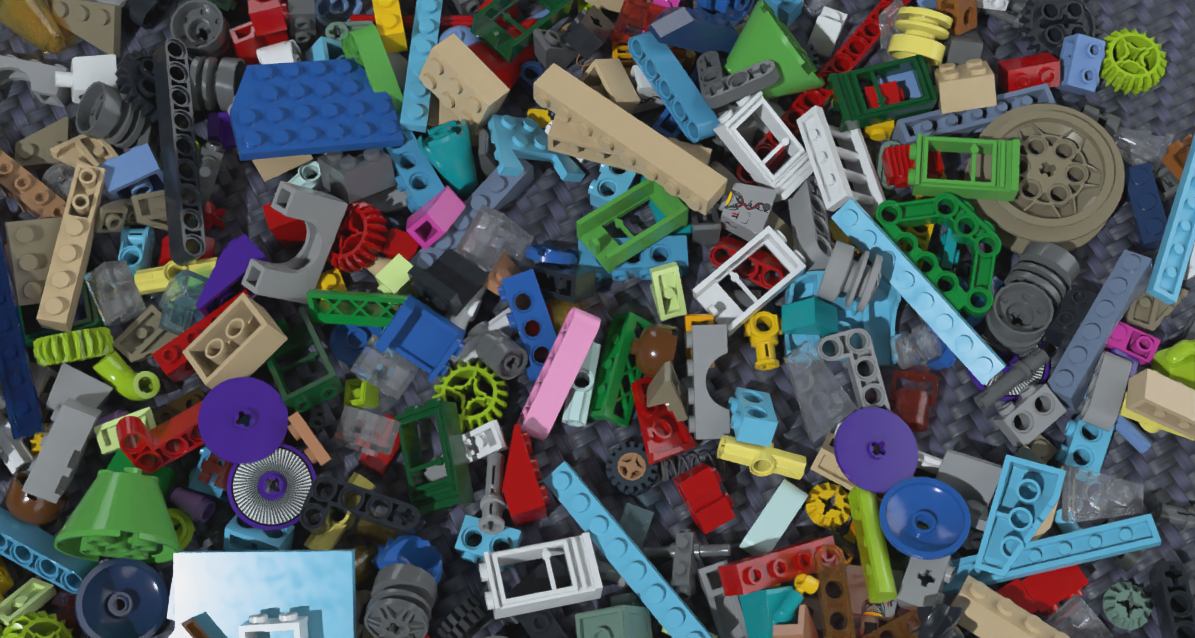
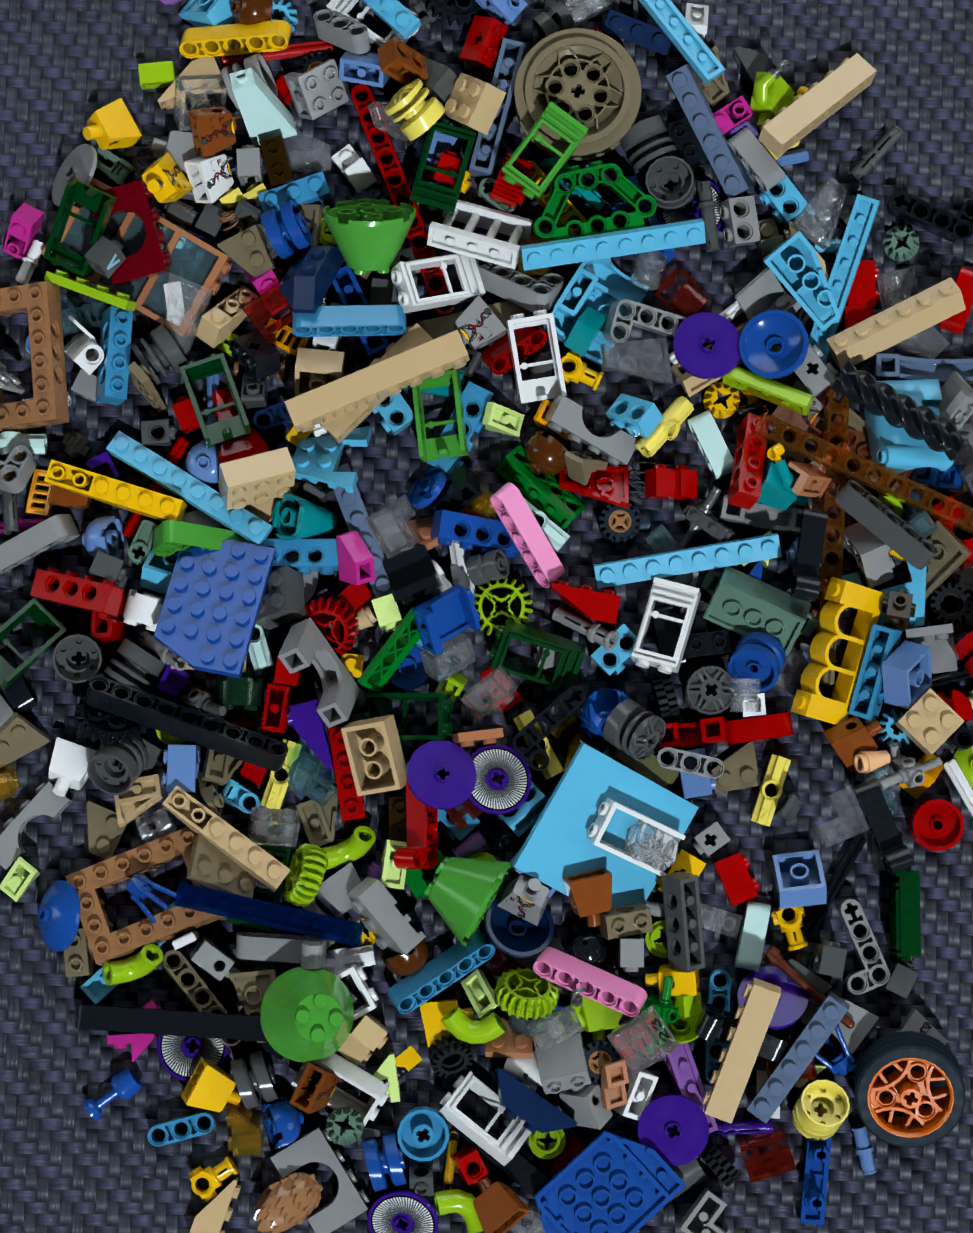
camera: 65 degrees left, 15 degrees up
(151, 593) = (525, 898): none -> light grey torso
(242, 189) = (239, 692): none -> clear green brick
(251, 223) = (275, 708): none -> red brick
(484, 441) = (544, 613): white slope -> none
(723, 88) = (374, 286): dark grey beam -> none
(850, 276) = (576, 290): light grey wheel -> none

